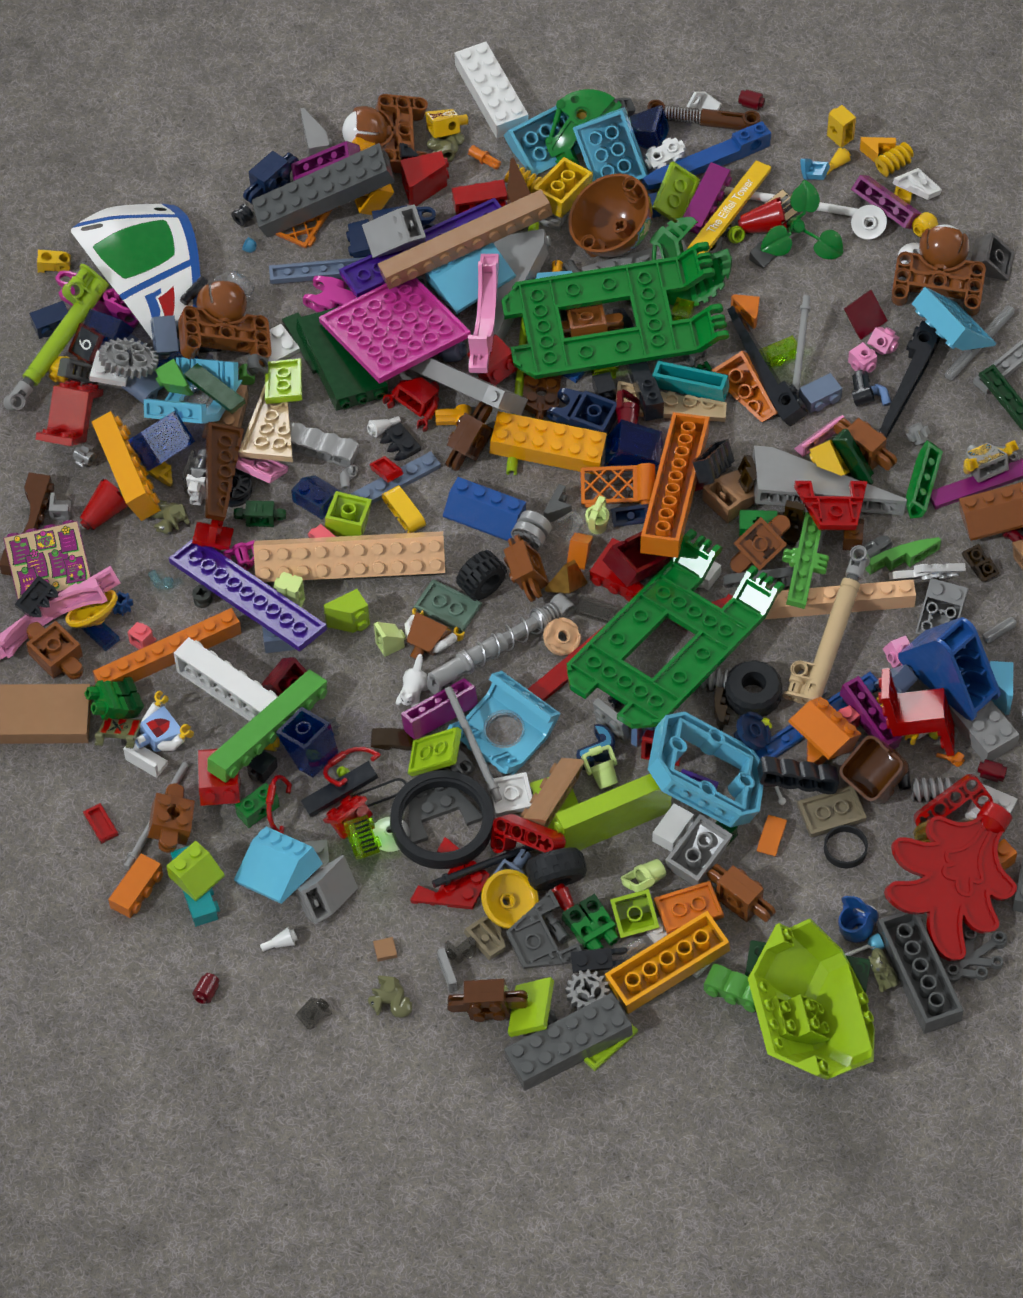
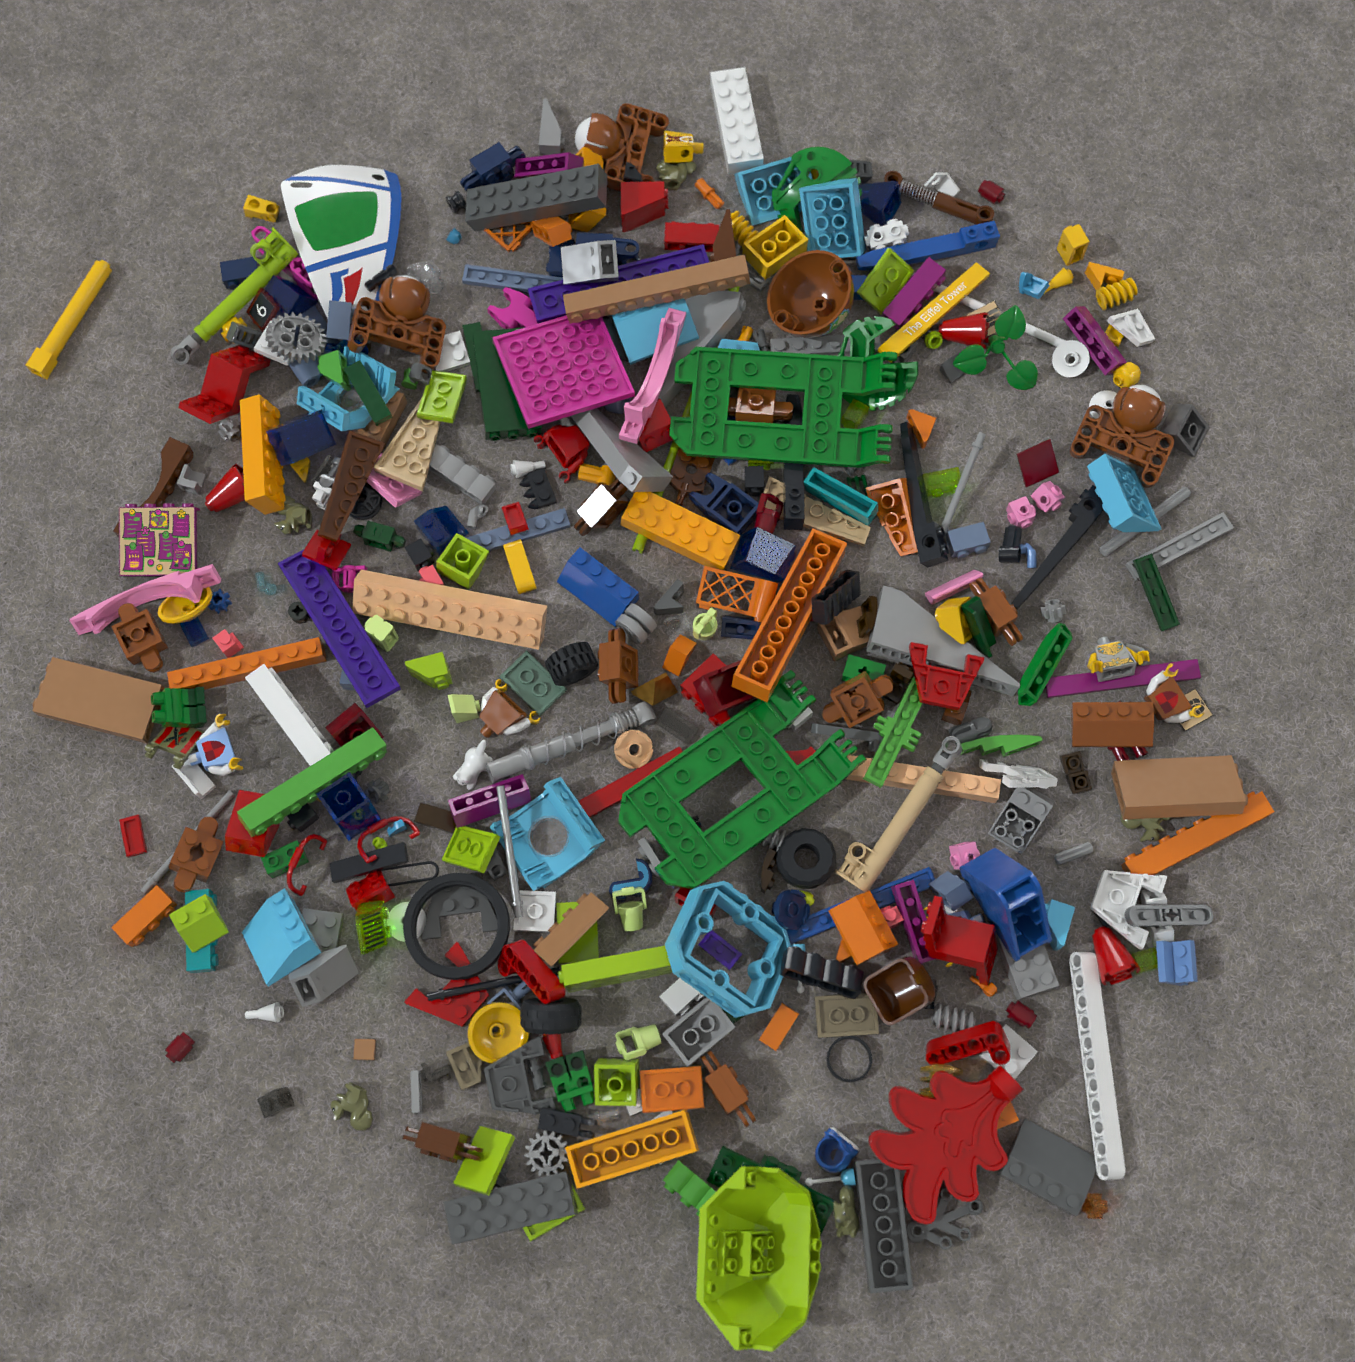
camera: 15 degrees right, 15 degrees up
(36, 596) = (134, 578): black plate -> none
(303, 520) = (420, 554): none -> black brick
(345, 216) = (552, 230): none -> orange brick
(358, 755) = (398, 827): none -> dark azure tile

